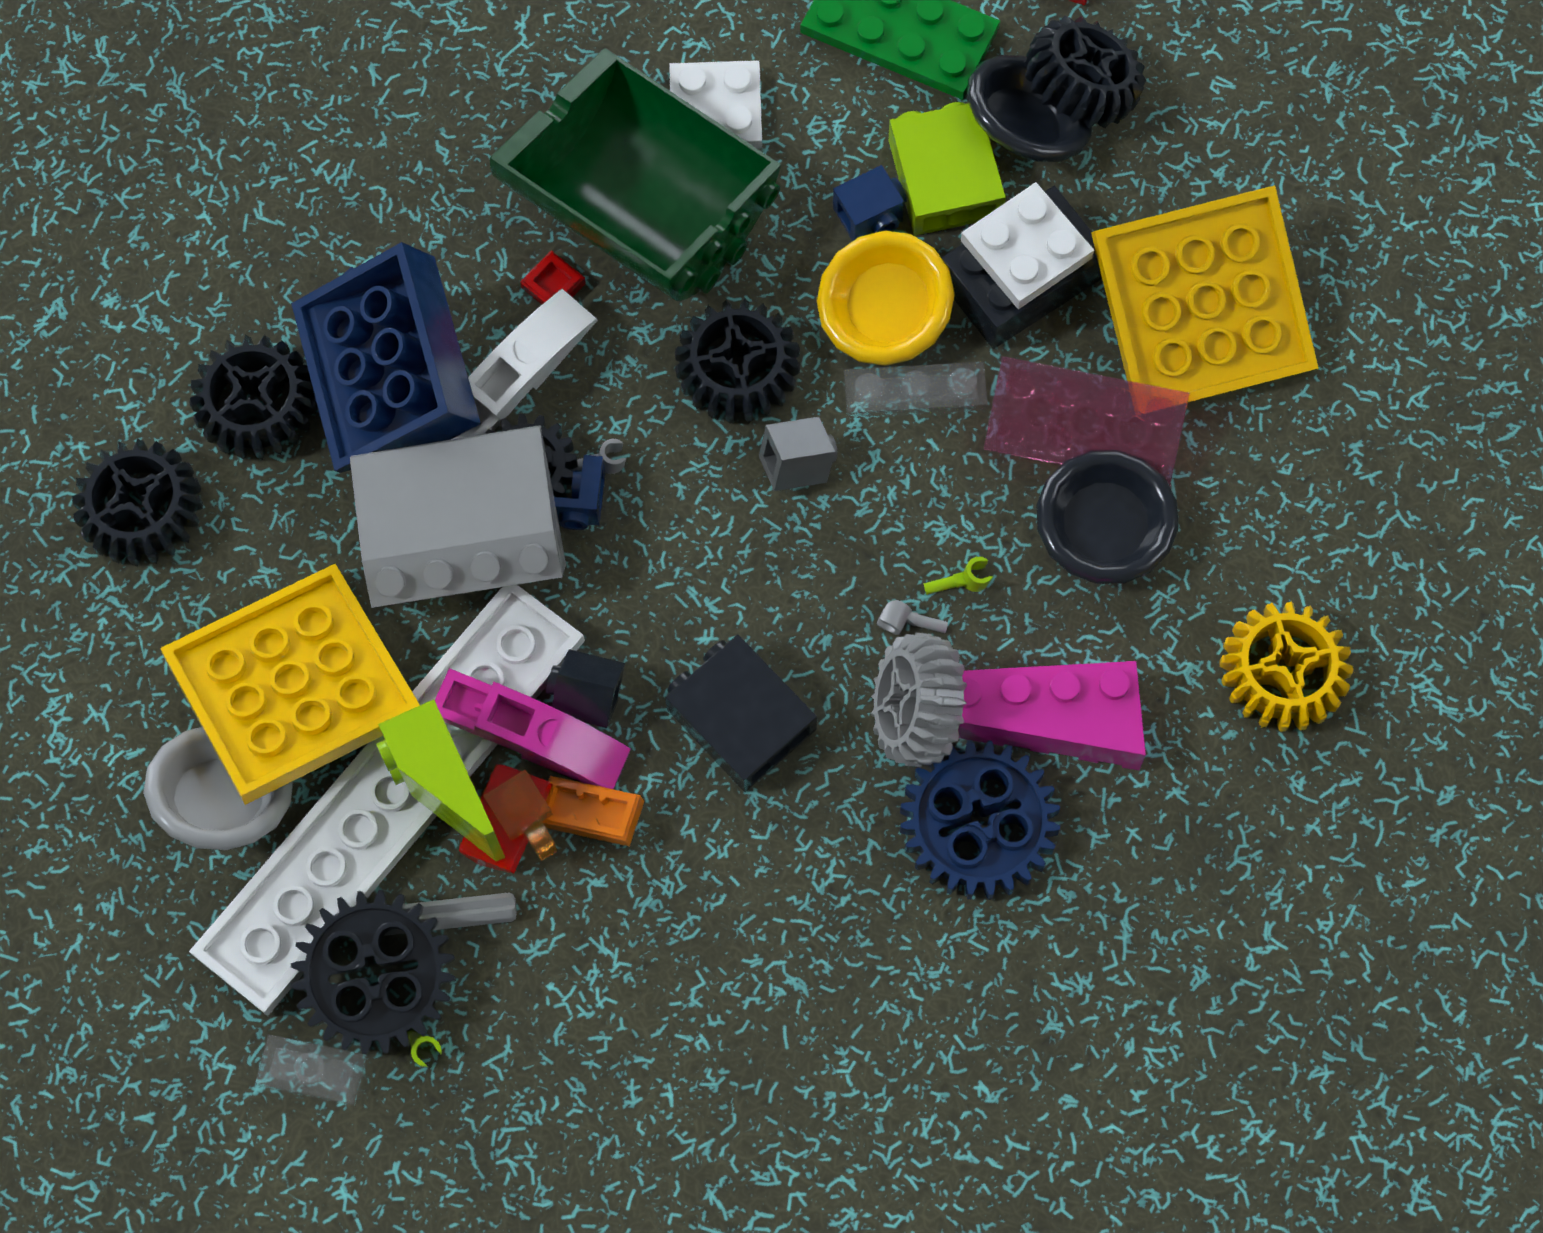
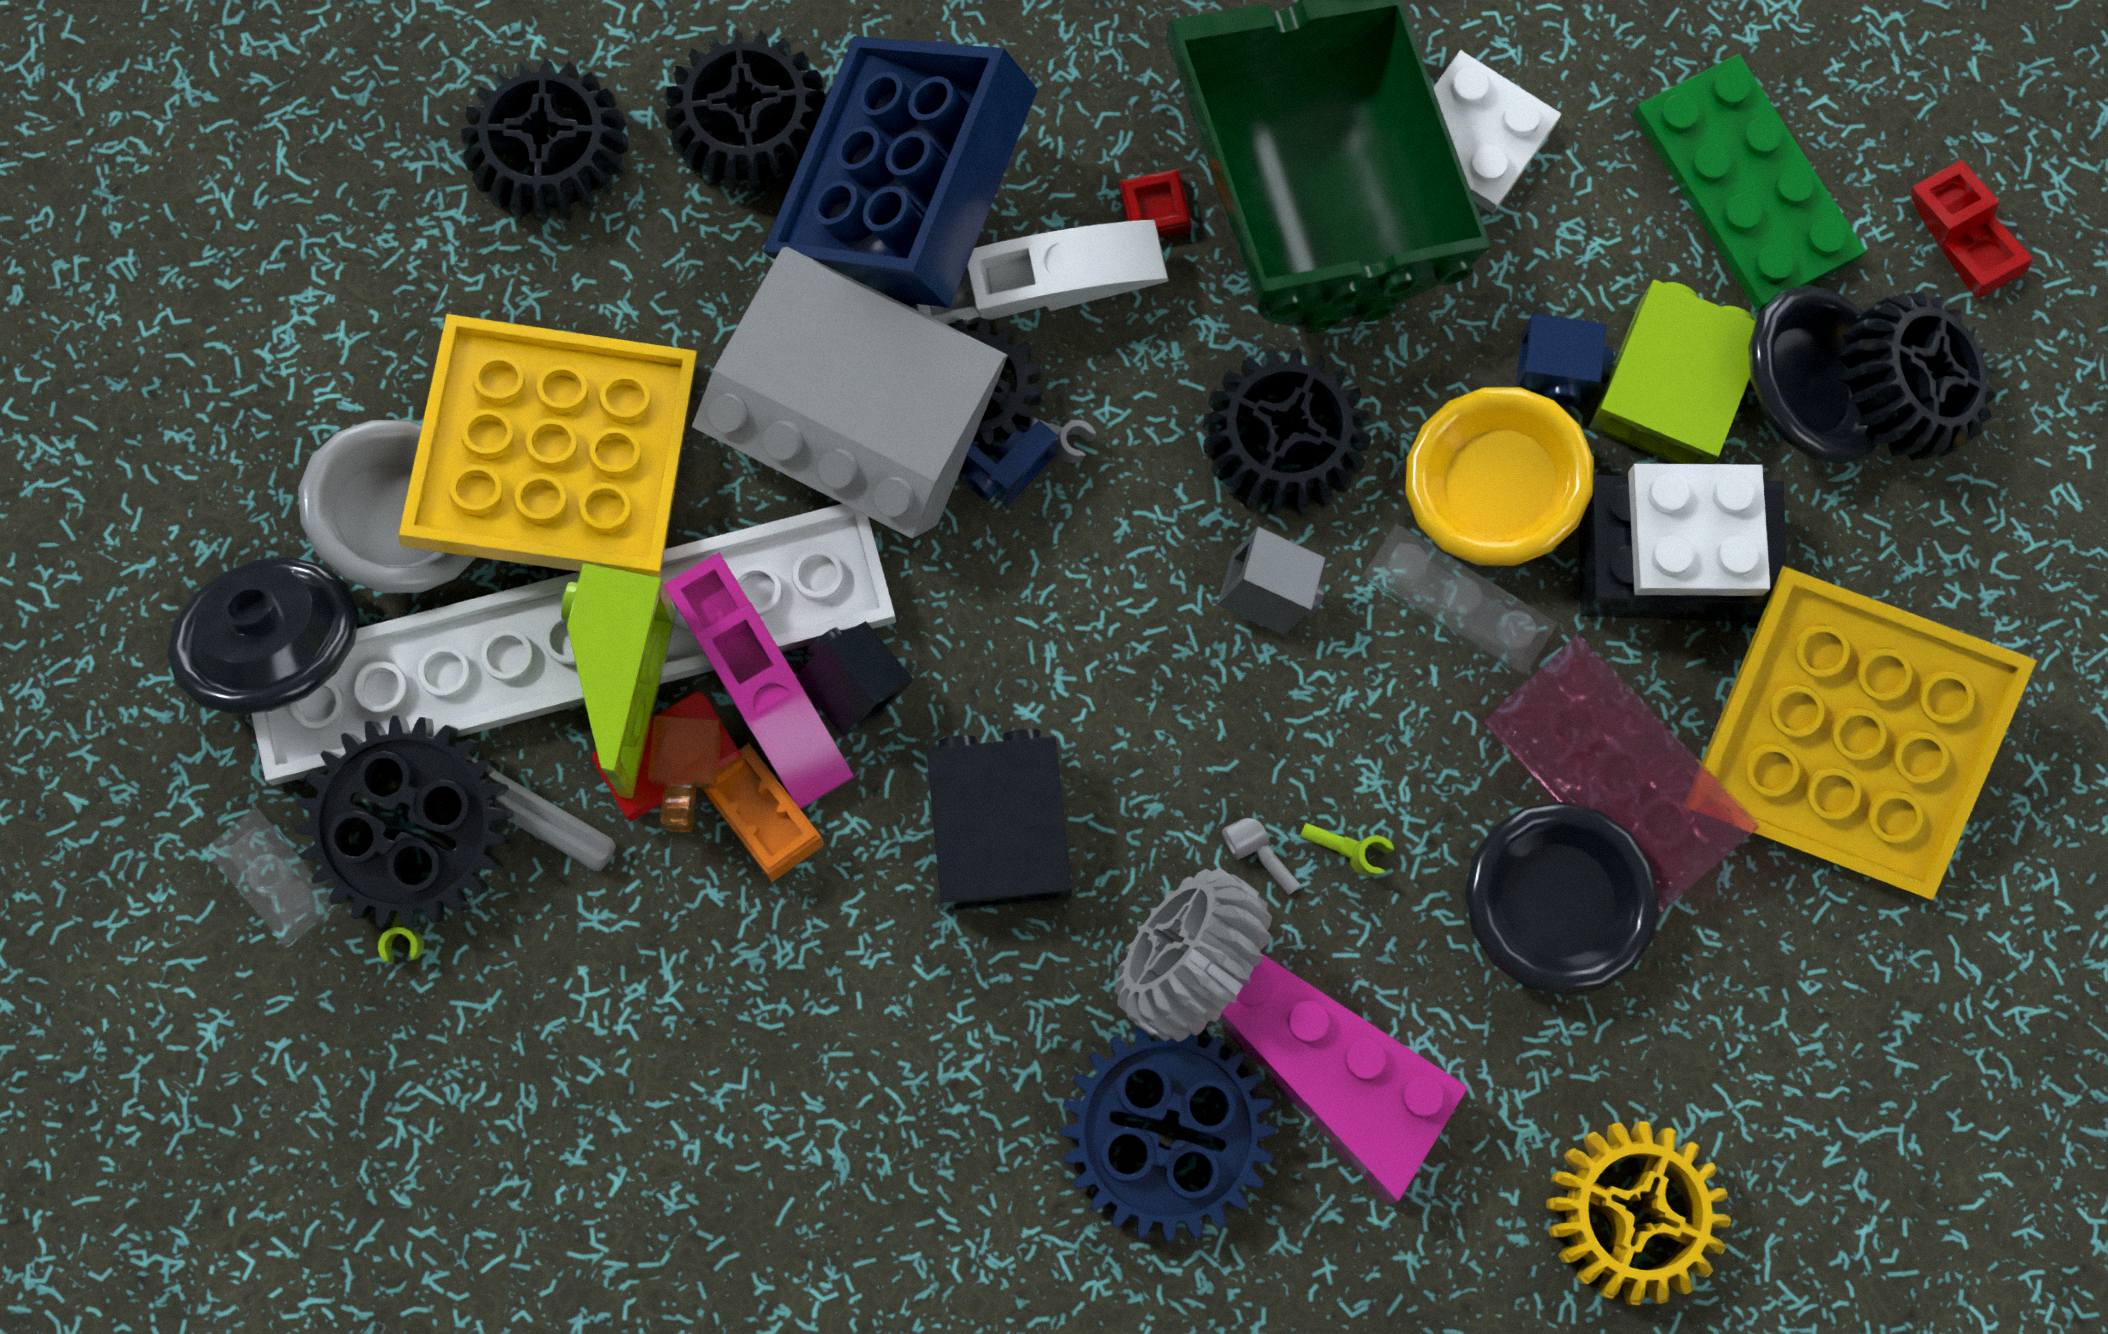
camera: 30 degrees right, 5 degrees up
(194, 925) = (263, 635): none -> black piece

